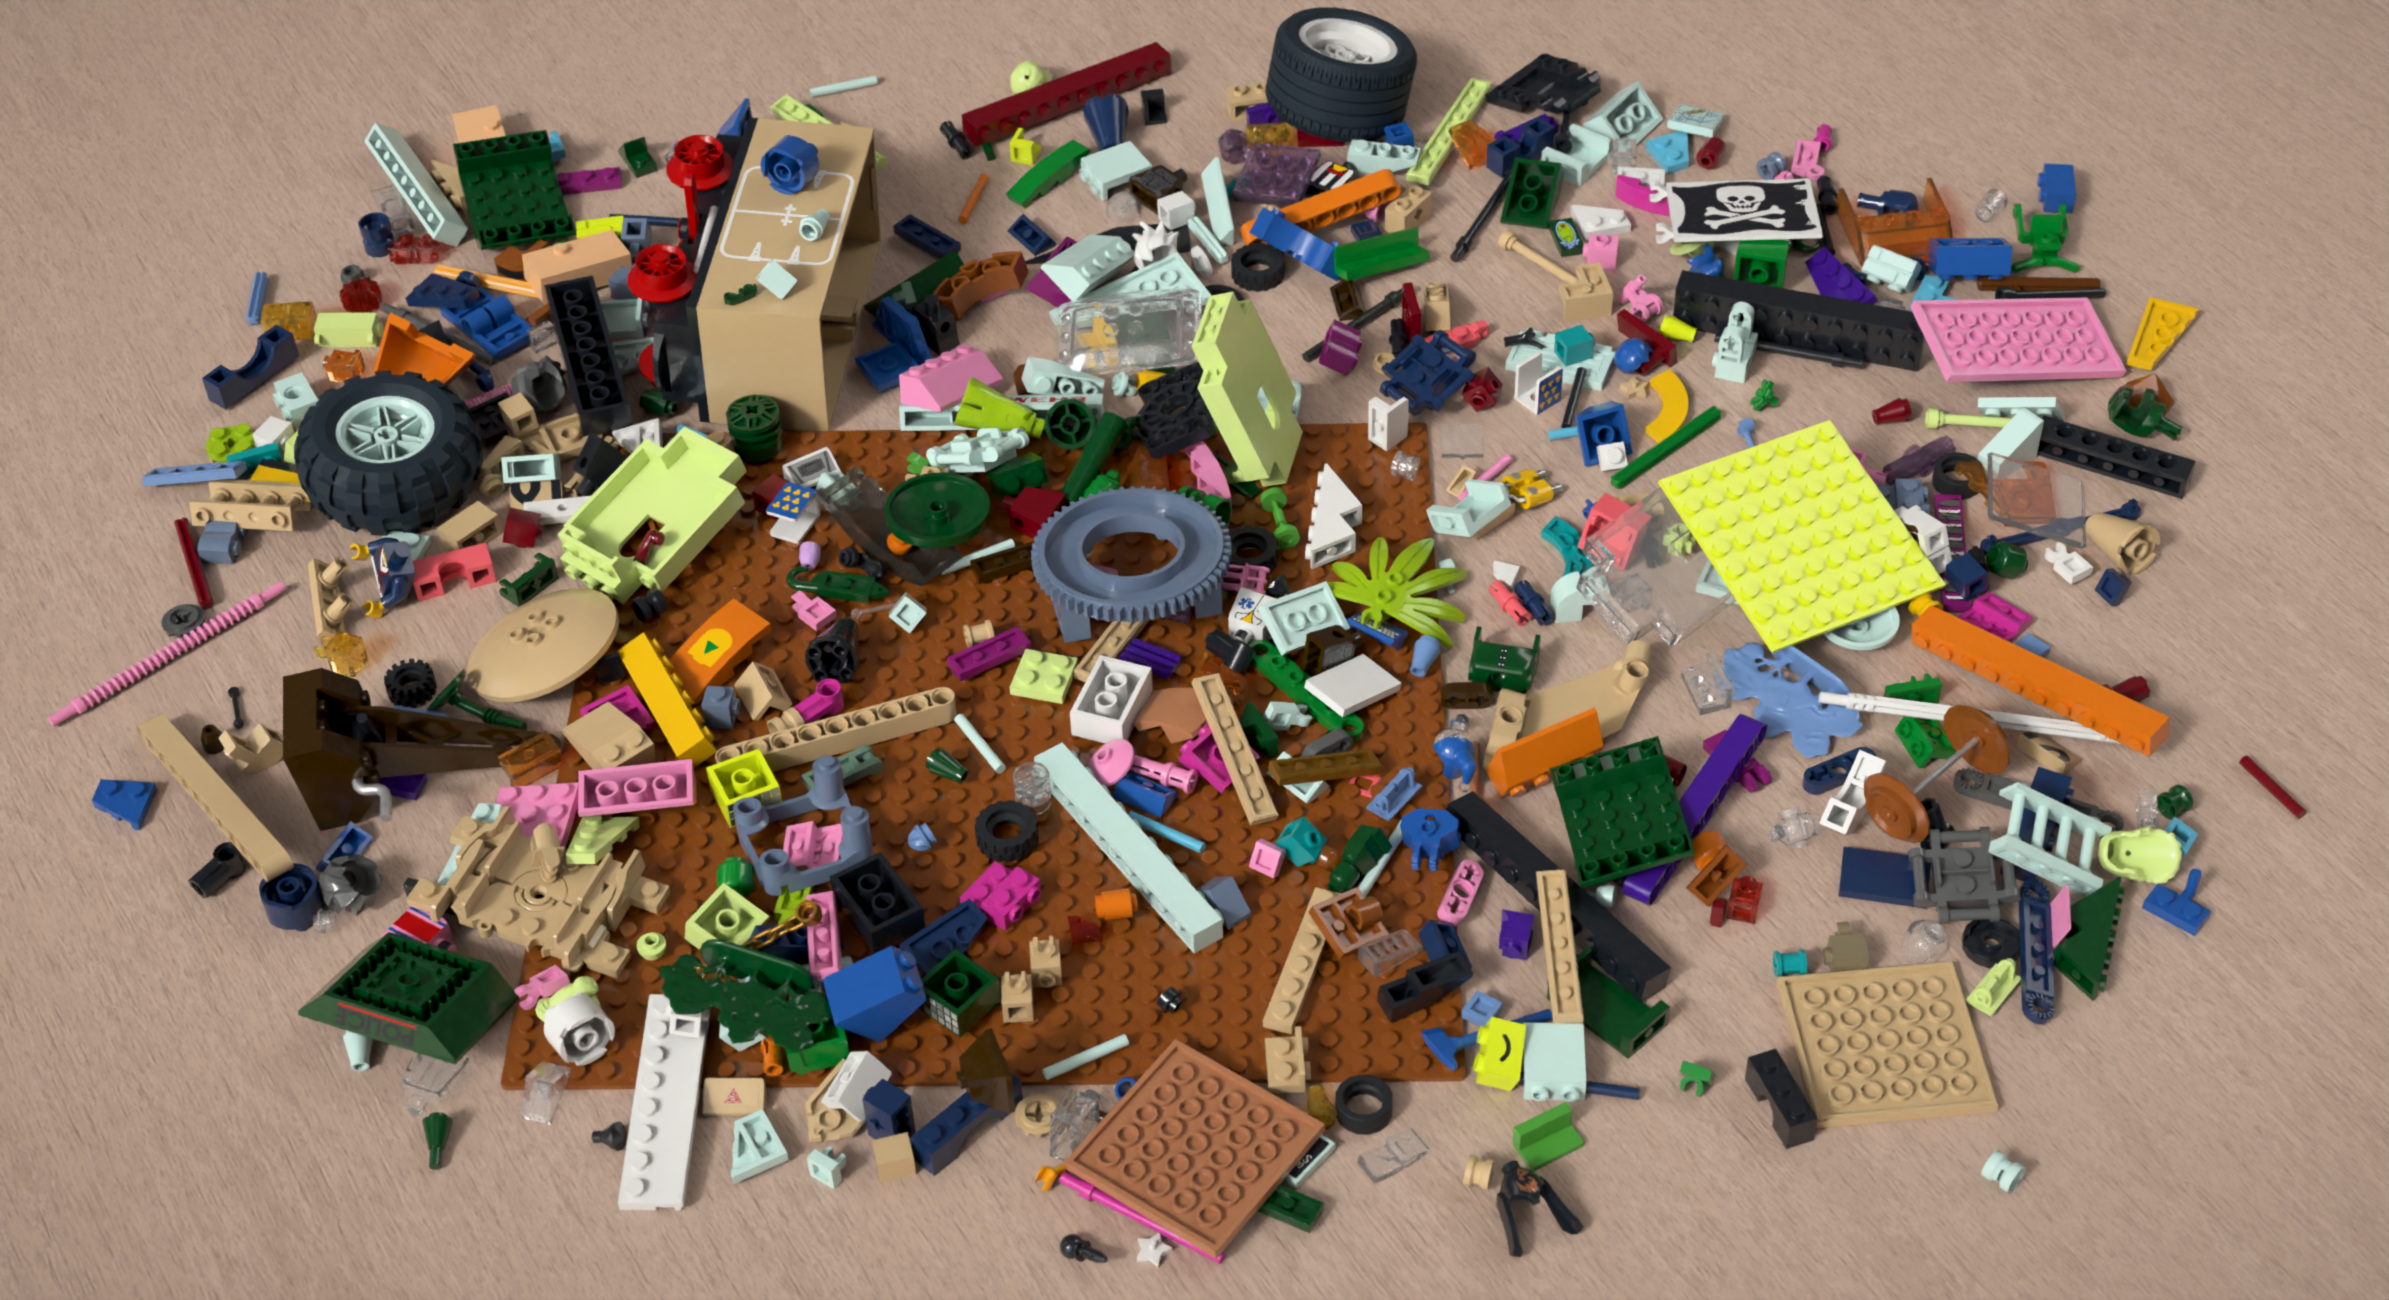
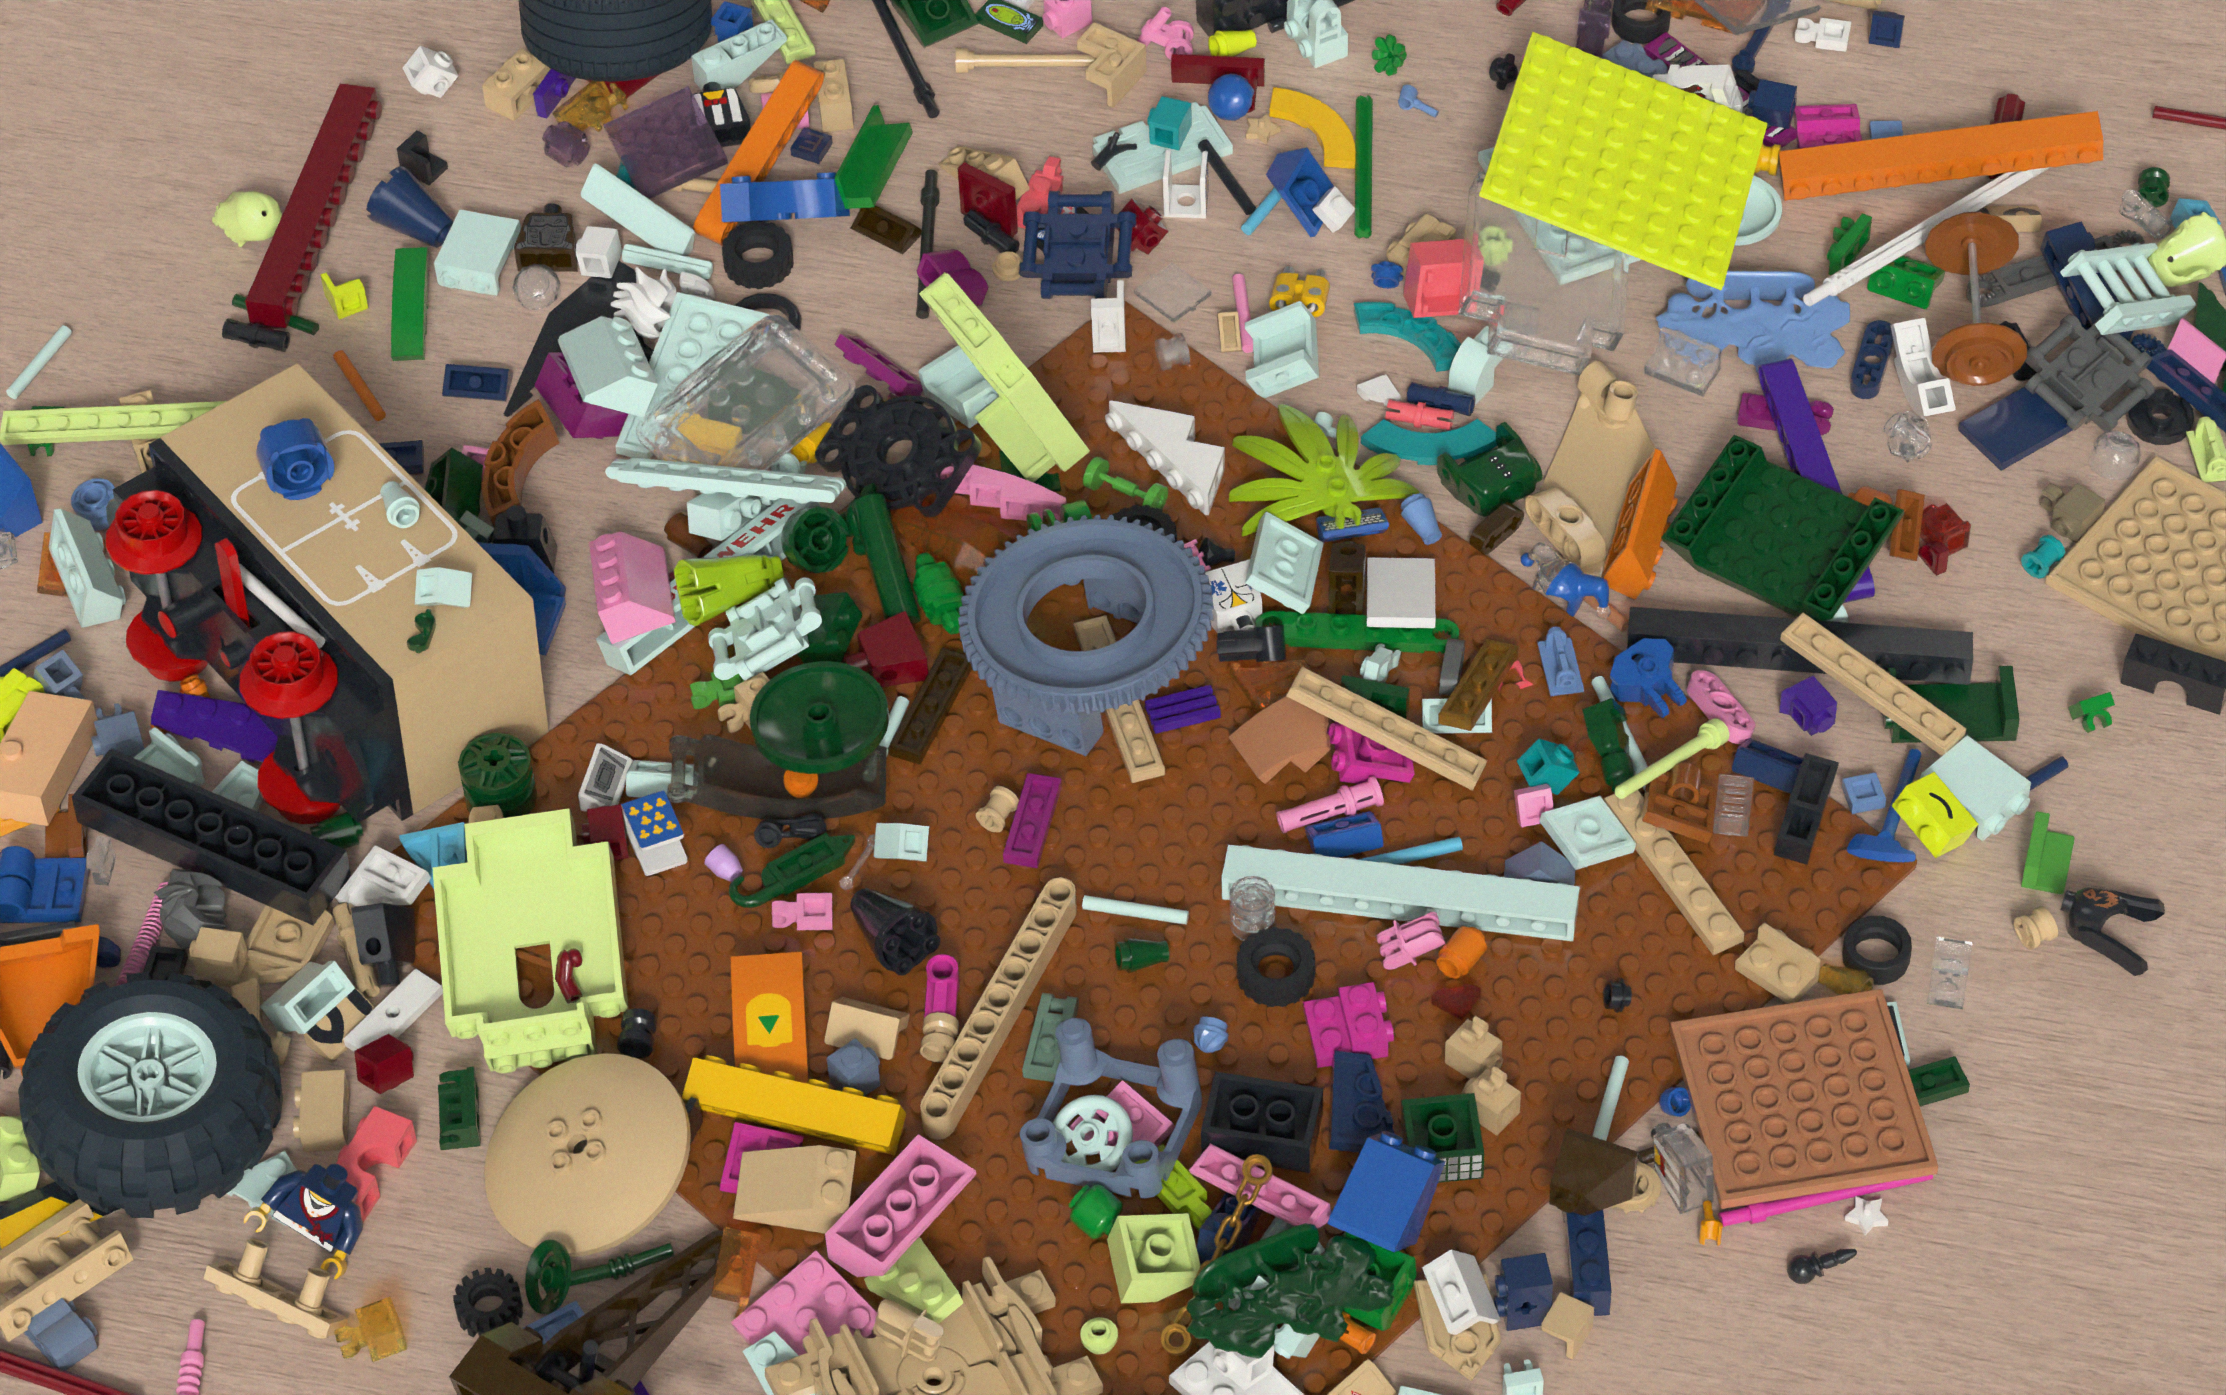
camera: 45 degrees left, 5 degrees up
(742, 778) = (989, 1122): neon yellow brick -> none
(788, 837) = (1117, 1121): none -> light aqua plate
(1043, 676) = (1107, 802): yellowish green plate -> none
(1063, 359) = (733, 480): none -> light aqua hinge
(1096, 875) = (1410, 940): none -> bright pink arm
(1111, 700) = (1215, 773): white brick -> none
(1112, 761) = (1301, 821): bright pink dish -> none
(1212, 66) = (430, 71): none -> white brick
(1279, 898) = (1587, 832): none -> light aqua tile
(1425, 901) = (1710, 736): none -> yellowish green piece
(1494, 627) = (1426, 447): none -> teal tile
(2007, 560) = (1779, 64): dark green head -> none

